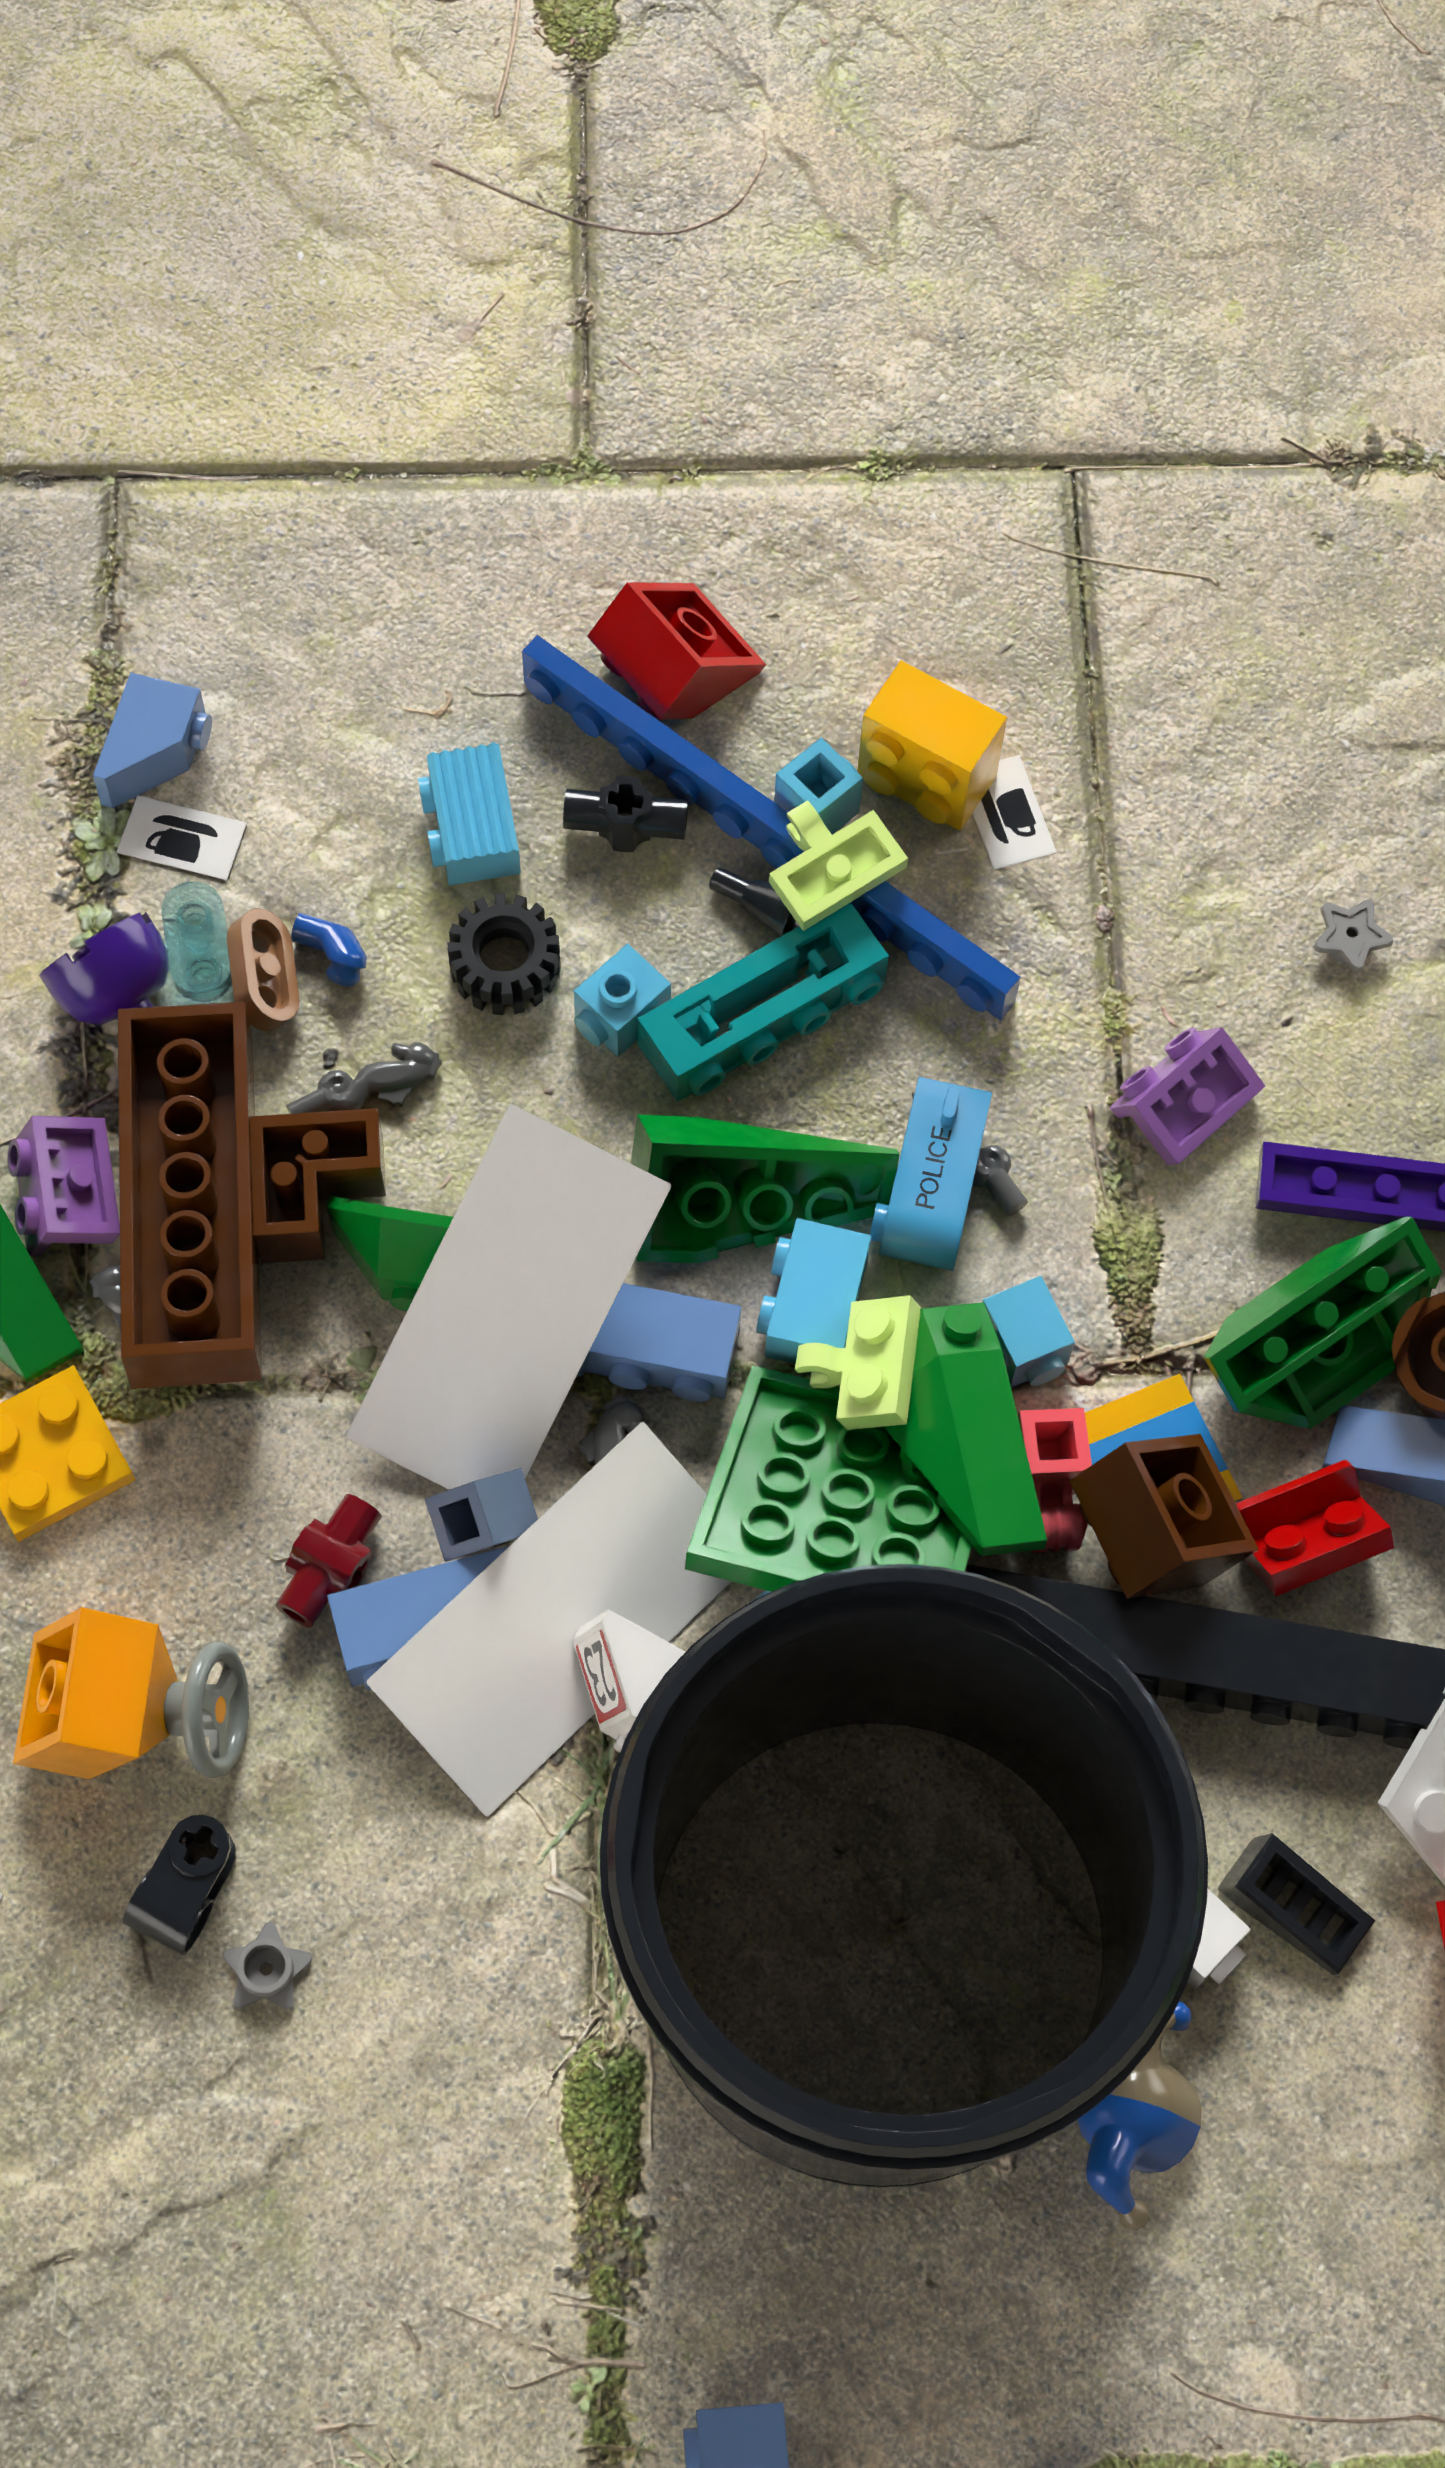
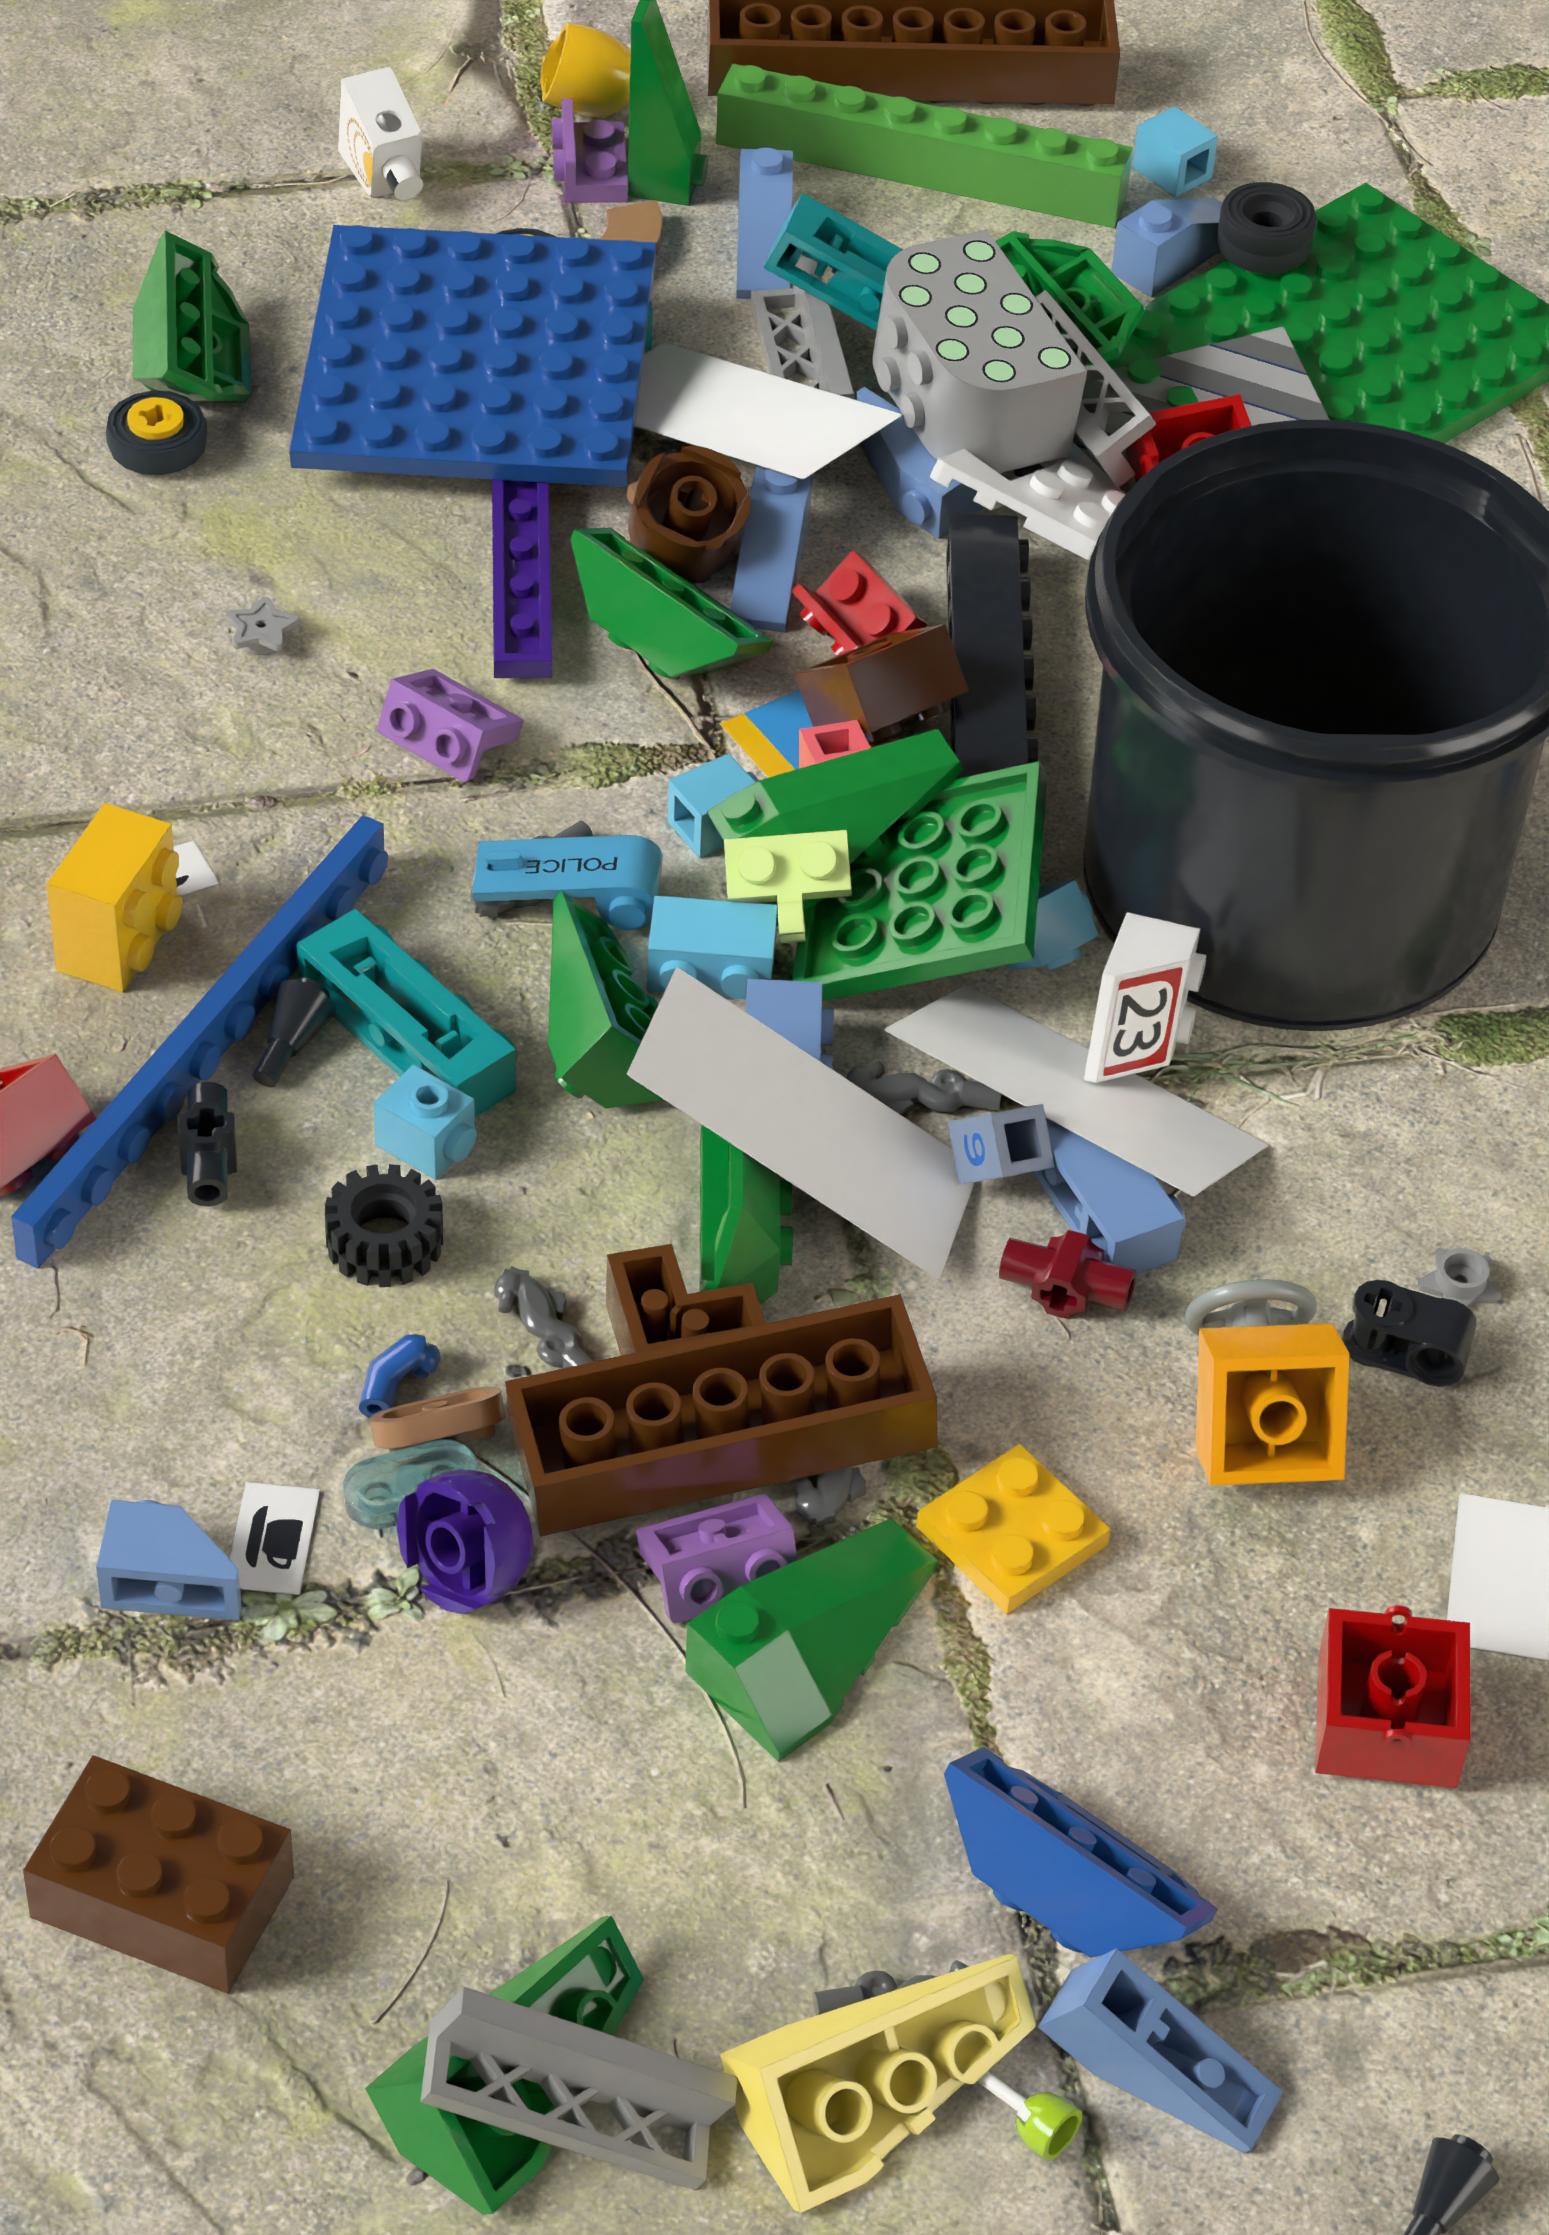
camera: 100 degrees left, 20 degrees down
(472, 814) = (225, 1267): medium azure brick -> none
(824, 781) = (168, 980): medium azure brick -> none
(833, 866) = (270, 933): yellowish green plate -> none

